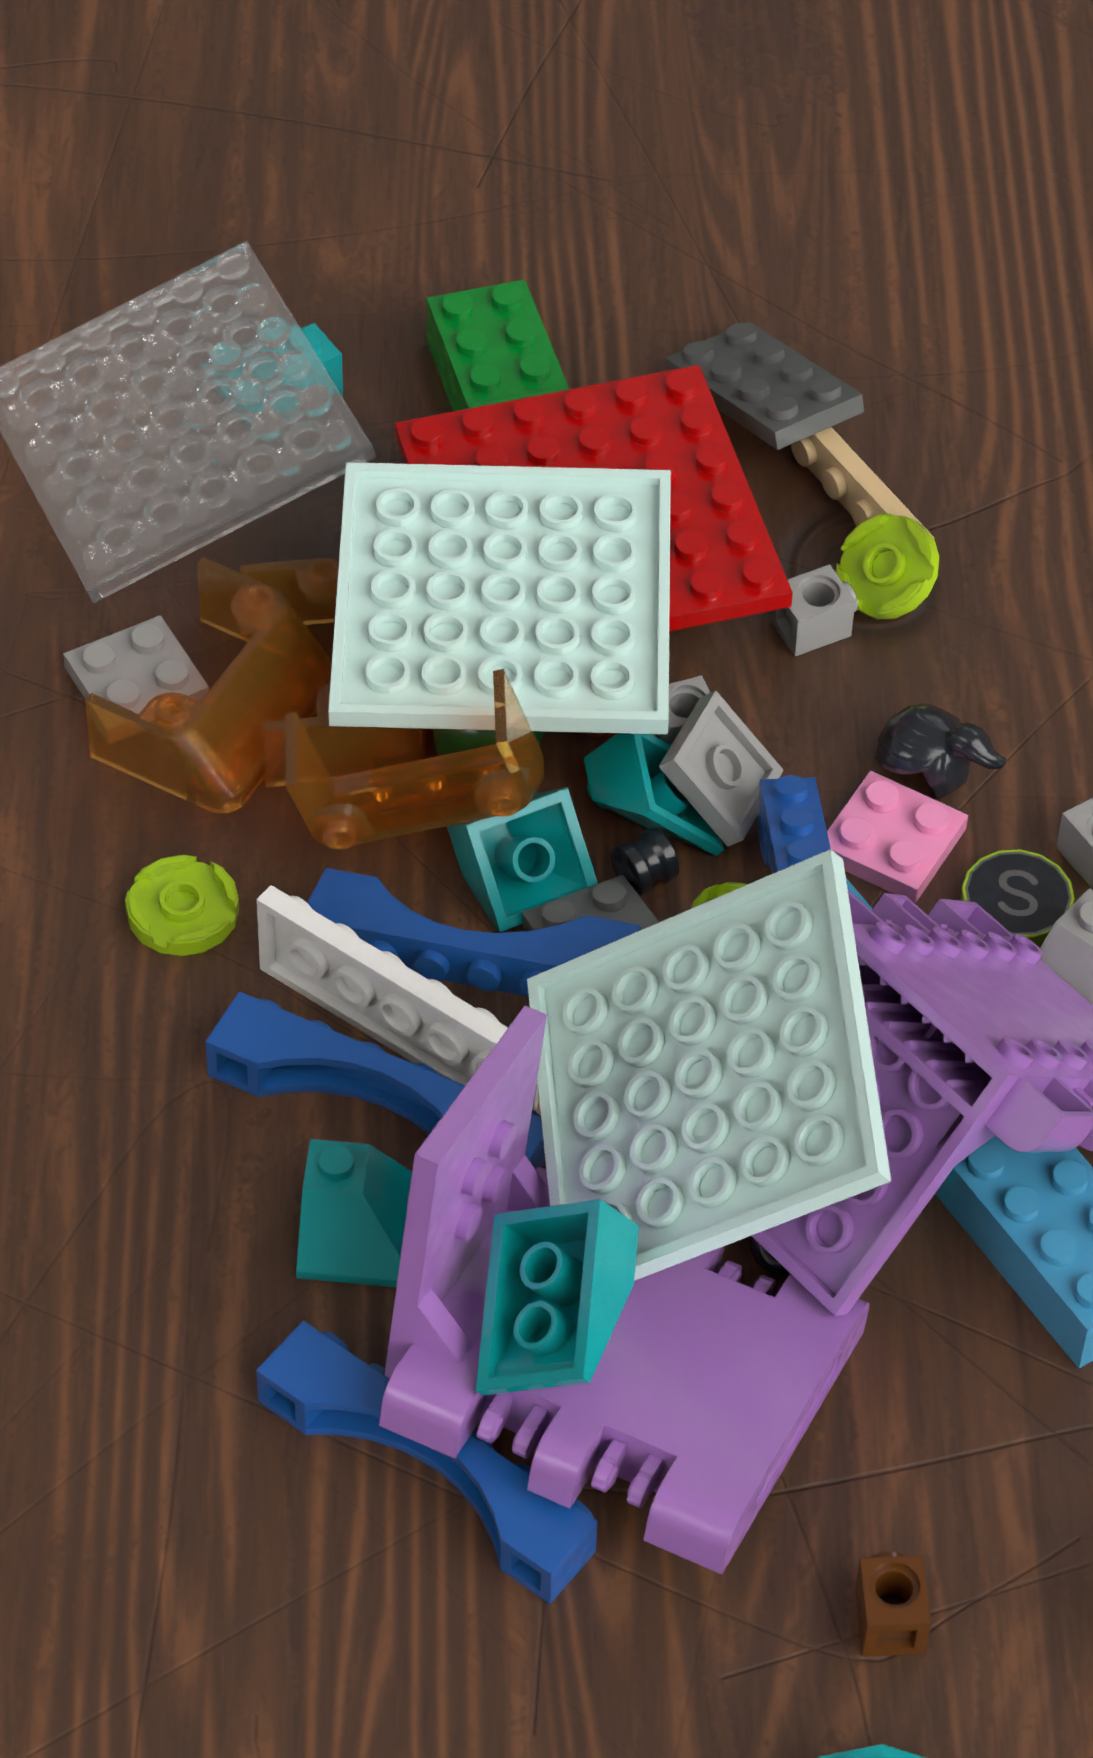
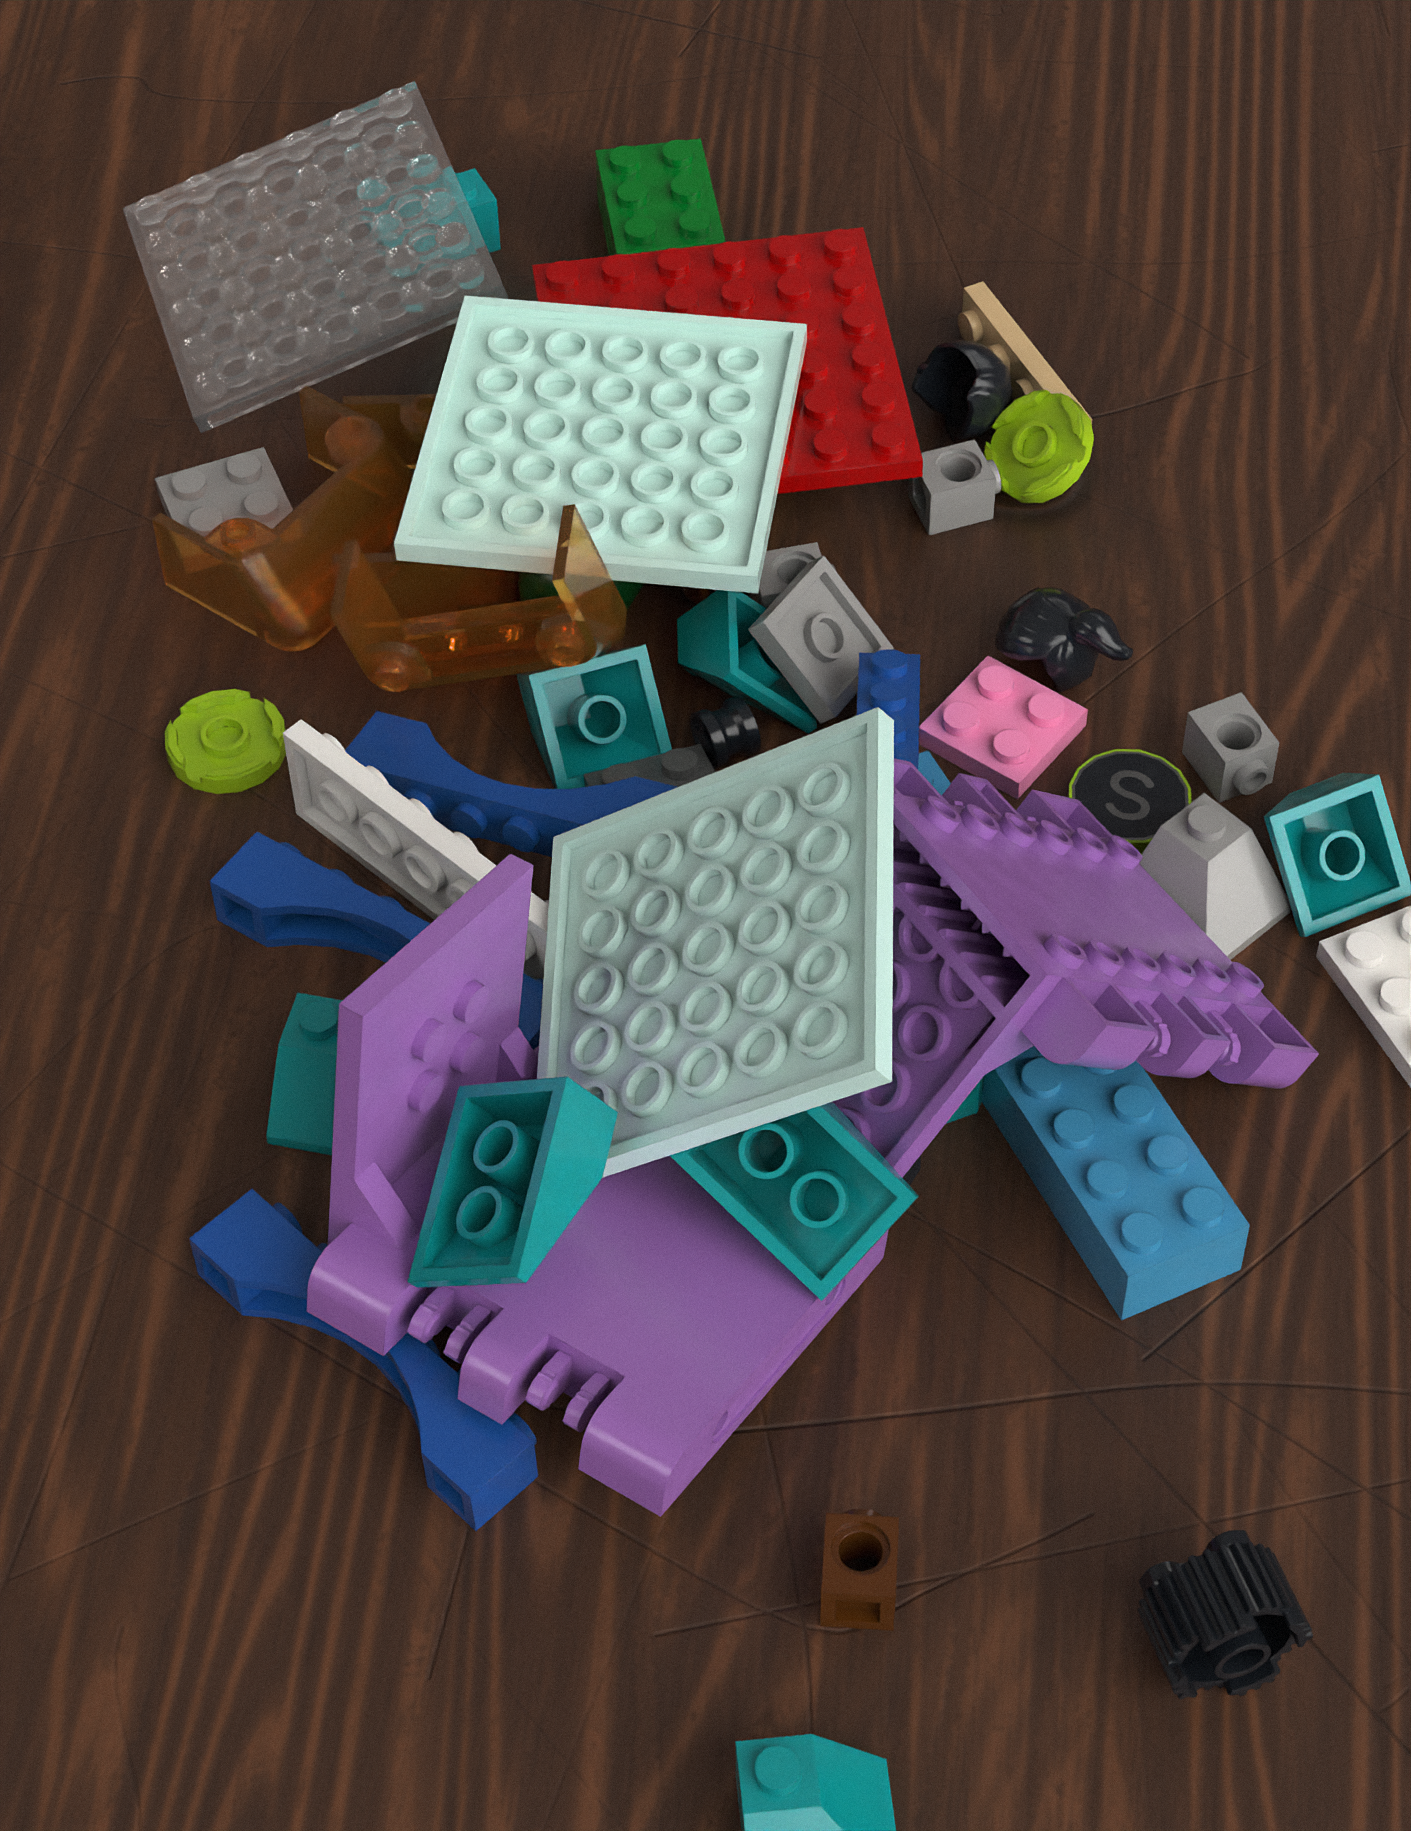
camera: 10 degrees right, 0 degrees up
(769, 385) = (942, 258): dark grey plate -> none
(807, 1282) = (805, 1191): none -> teal slope
(812, 511) = (966, 385): none -> black hair

